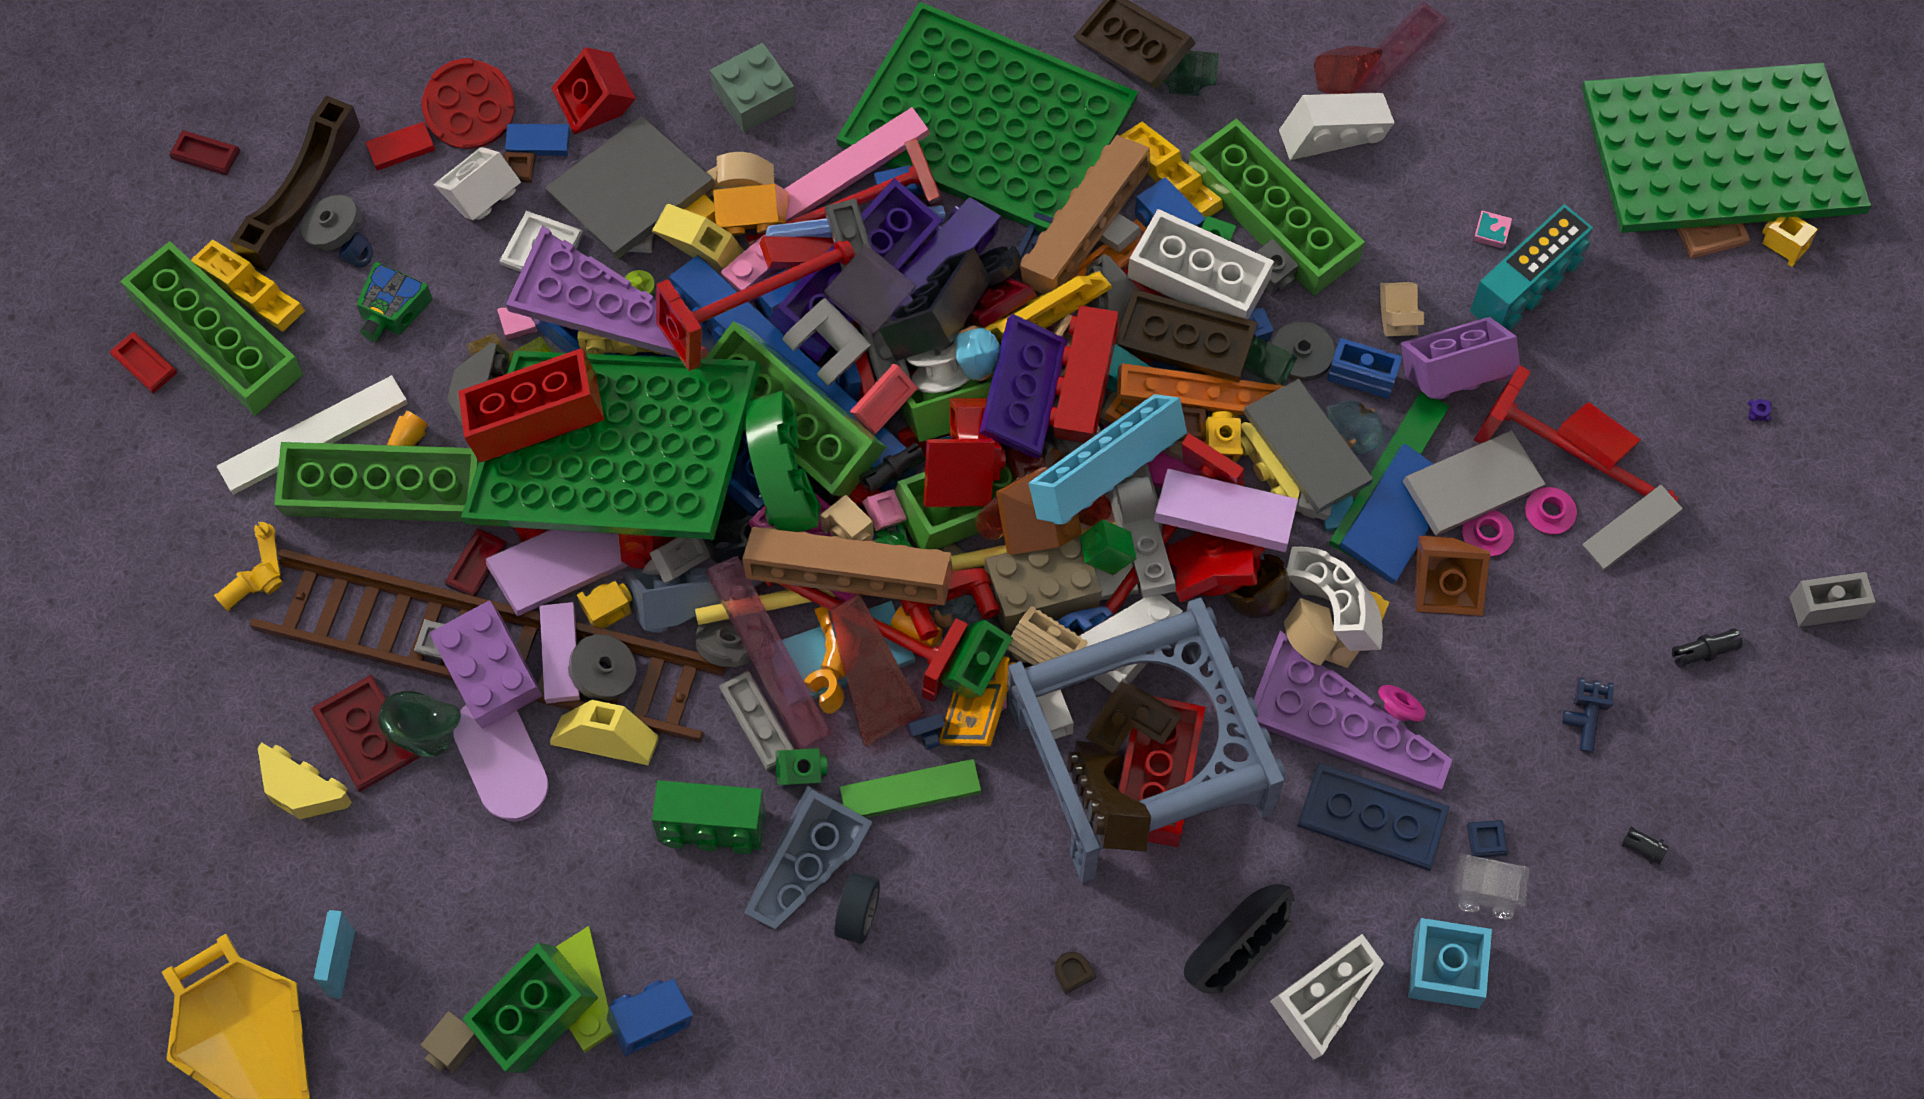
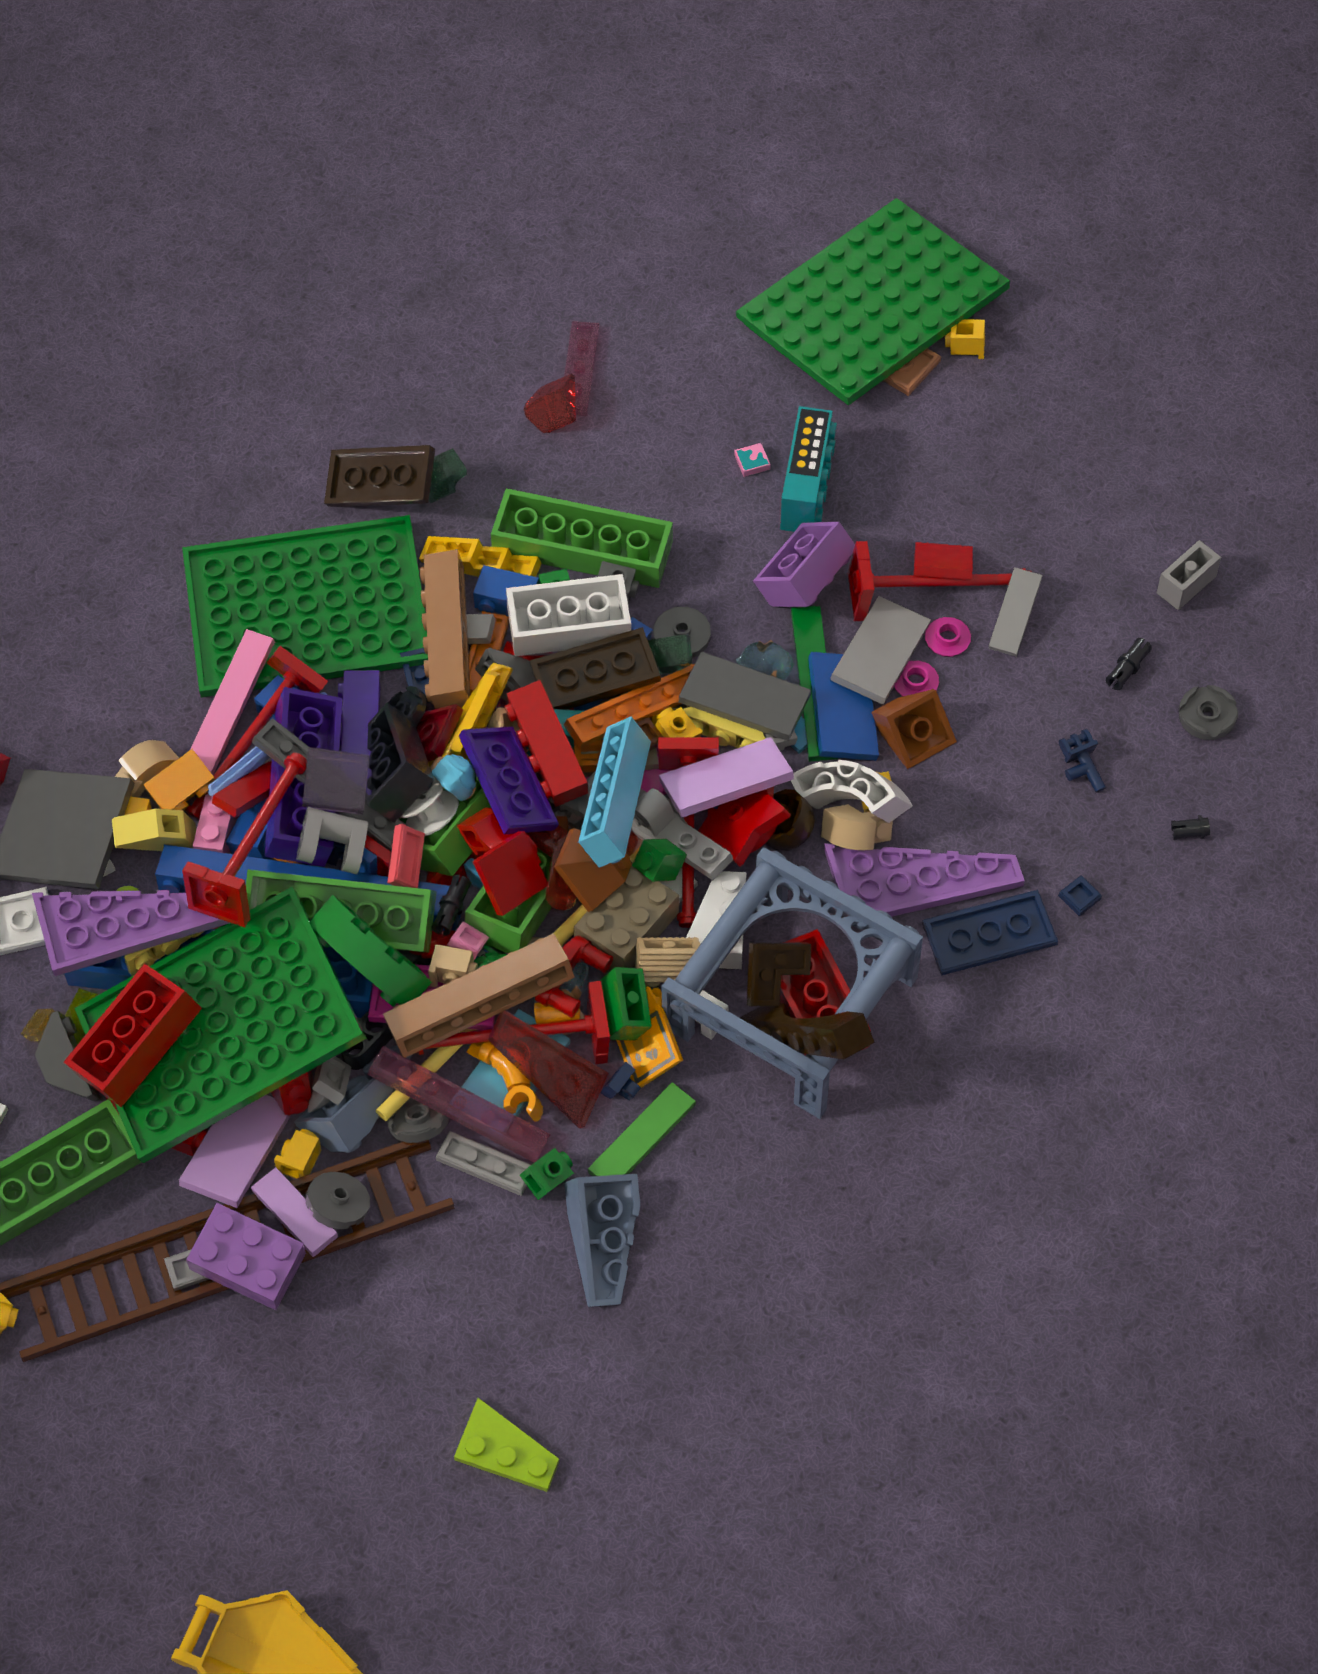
camera: 35 degrees left, 5 degrees down
(298, 786) = (162, 1451): light yellow slope -> none
(334, 954) = (300, 1550): medium azure tile -> none
(355, 734) = (181, 1377): dark red tile -> none
(408, 430) = (28, 1127): light orange cone -> none
(418, 723) = (224, 1337): clear green piece -> none
(449, 1043) = (441, 1554): dark tan brick -> none
(471, 568) = (165, 1193): dark red tile -> none
(503, 766) = (311, 1327): lavender tile -> none
(515, 324) = (48, 991): bright pink tile -> none
(530, 1008) = (487, 1482): green brick -> none
(607, 732) = (375, 1247): light yellow slope -> none
(648, 1016) = (579, 1427): blue brick -> none
(709, 816) = (510, 1252): green brick -> none
(753, 87) = (99, 692): sand green brick -> none
(857, 908) = (674, 1243): black wheel -> none
(1073, 971) = (862, 1184): dark brown tile -> none
(1085, 618) = (680, 923): blue slope -> none
(1240, 940) = (965, 1079): black brick -> none
(1326, 995) = (1055, 1076): white wedge -> none
(1335, 122) = (578, 449): white wedge -> none
(1364, 368) = (740, 615): blue brick -> none
(1400, 309) = (731, 557): tan brick -> none
(1401, 704) = (950, 840): dark pink piece -> none
(1450, 963) = (1123, 996): medium azure brick -> none
(1489, 886) = (1108, 925): clear brick -> none
(1759, 410) = (1038, 474): dark purple piece -> none
(1762, 733) = (1212, 700): none -> dark grey plate

